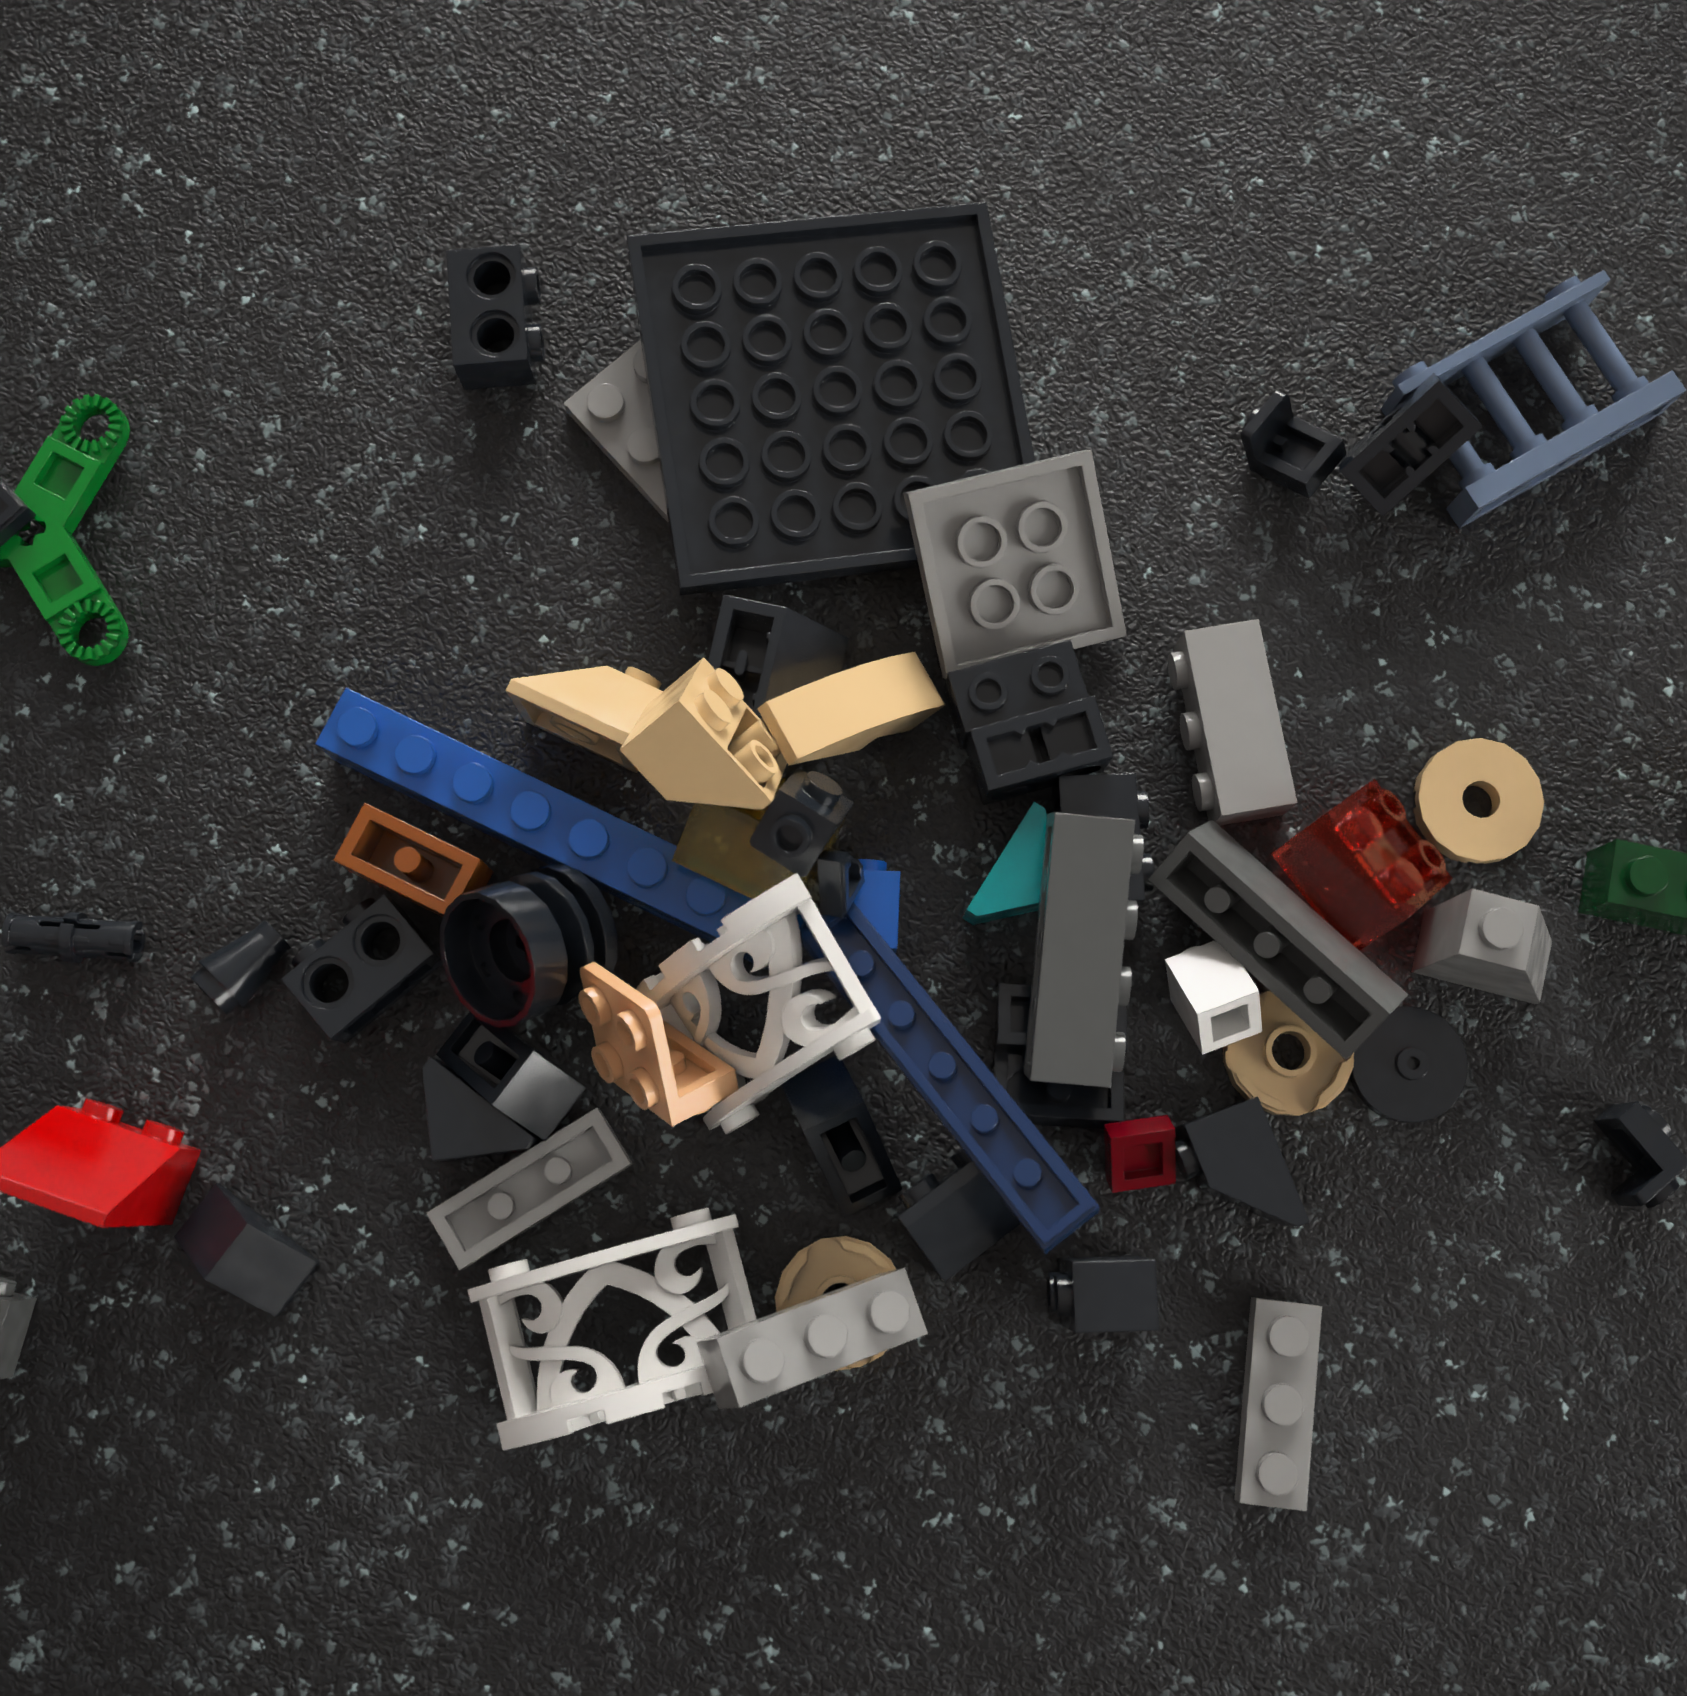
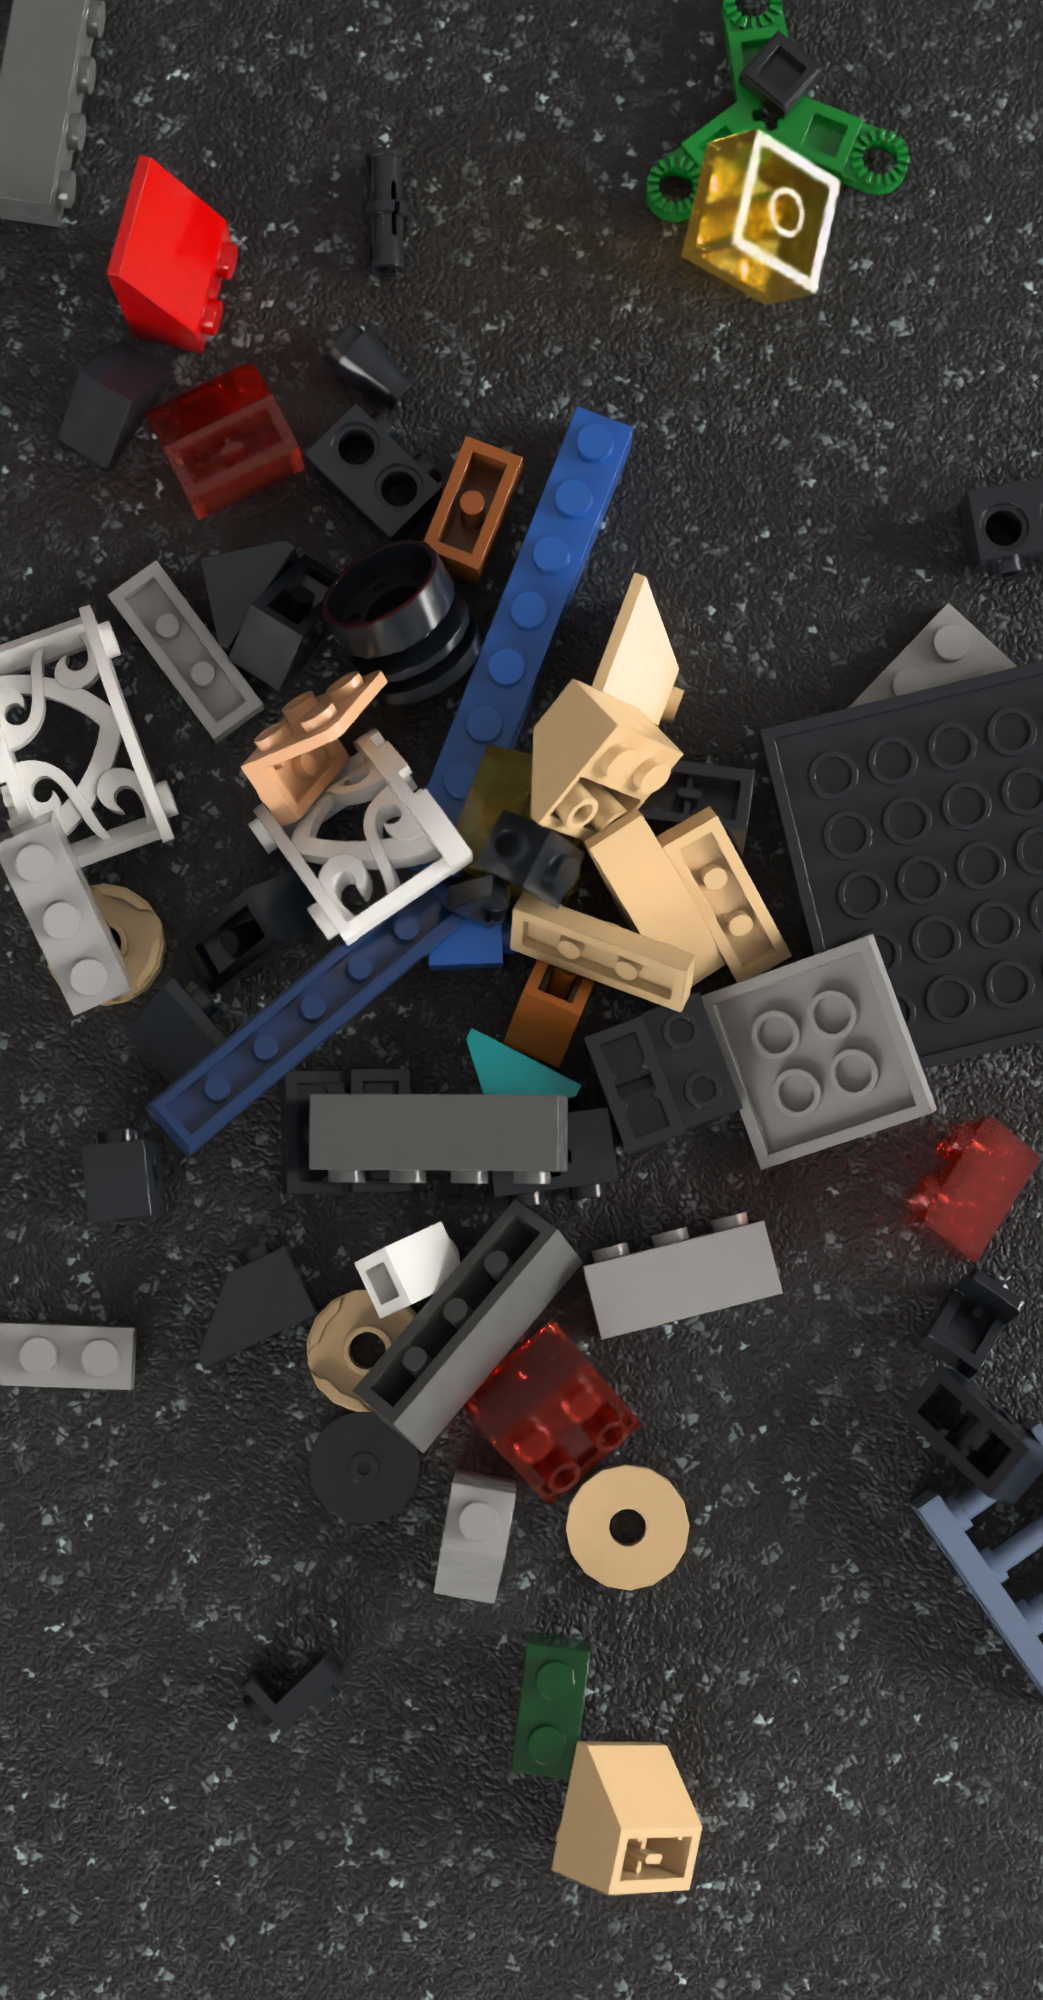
camera: 85 degrees right, 5 degrees up
(137, 540) = (761, 217): none -> clear yellow brick
(300, 1126) = (226, 440): none -> clear red slope
(847, 638) = (724, 895): none -> tan plate
(901, 763) = (602, 952): none -> tan plate
(934, 823) = (548, 1013): none -> dark orange slope
(1140, 1153) = (258, 1210): dark red plate -> none
(1157, 433) = (971, 1188): none -> clear red slope

